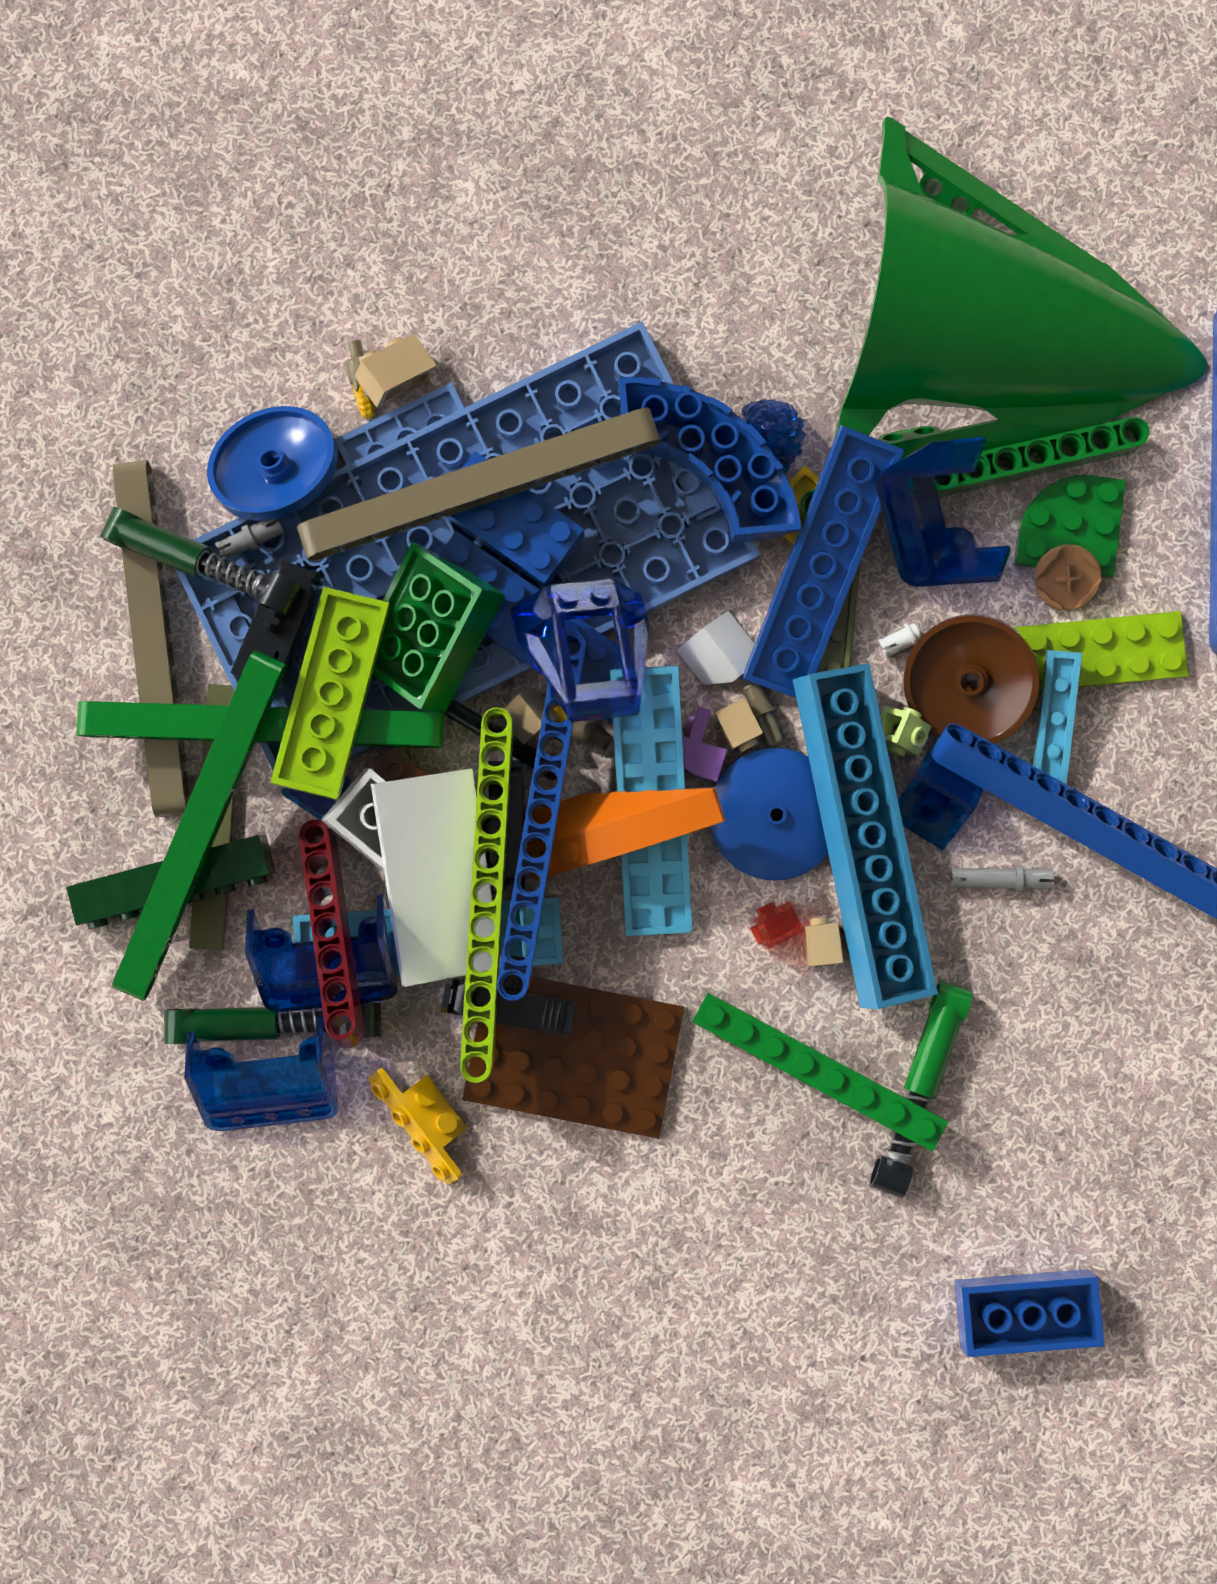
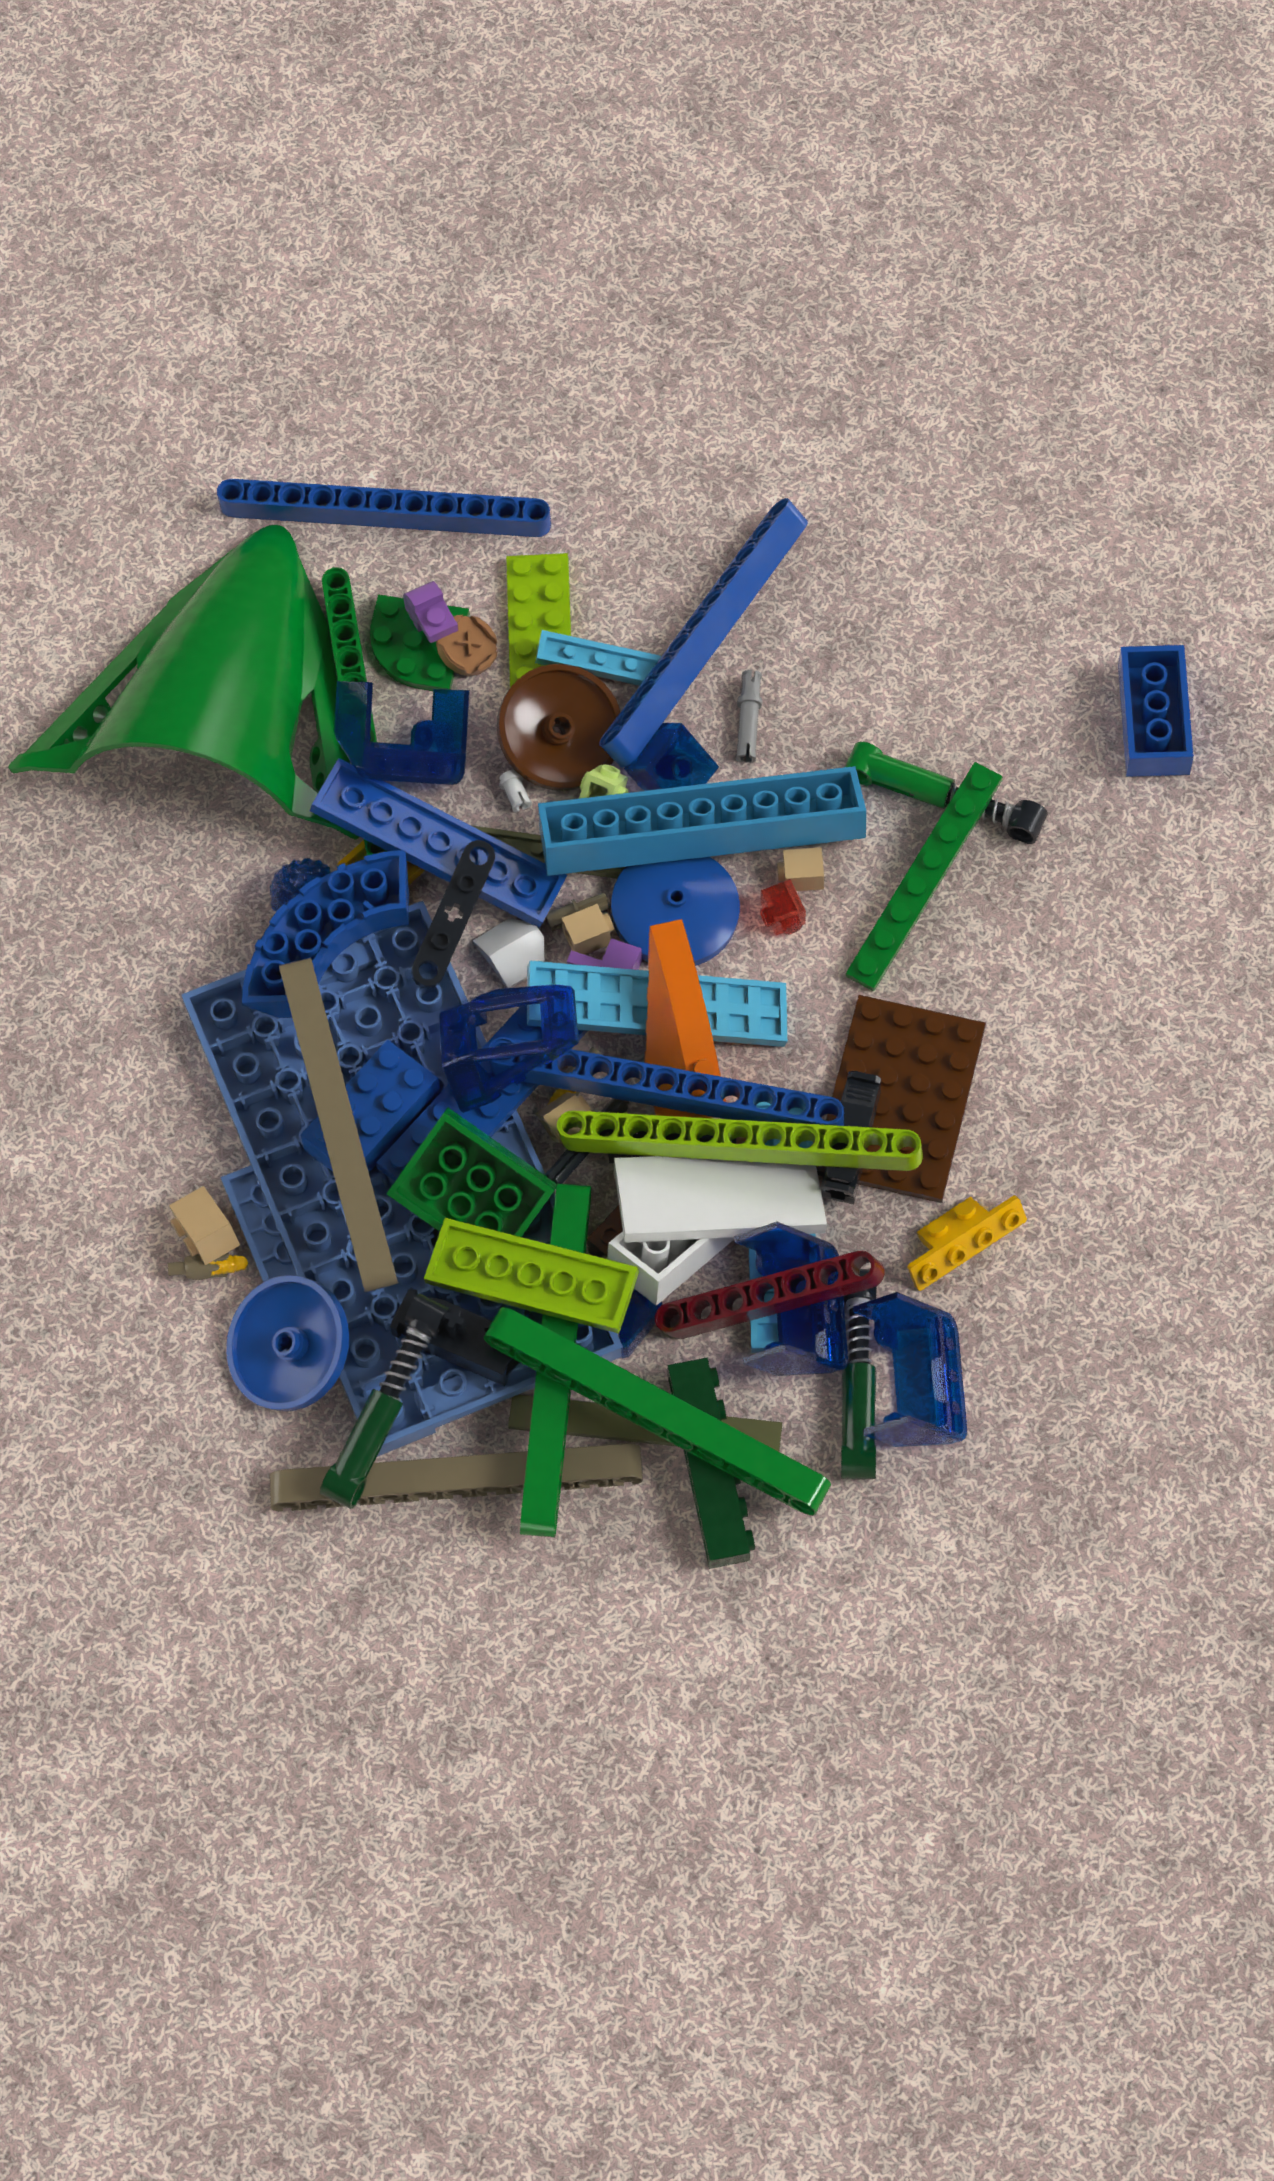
camera: 85 degrees left, 20 degrees down
(249, 538) = (364, 1362): light grey pin -> none
(715, 578) = (444, 934): none -> black piece
(1095, 533) = (430, 611): none -> medium lavender brick

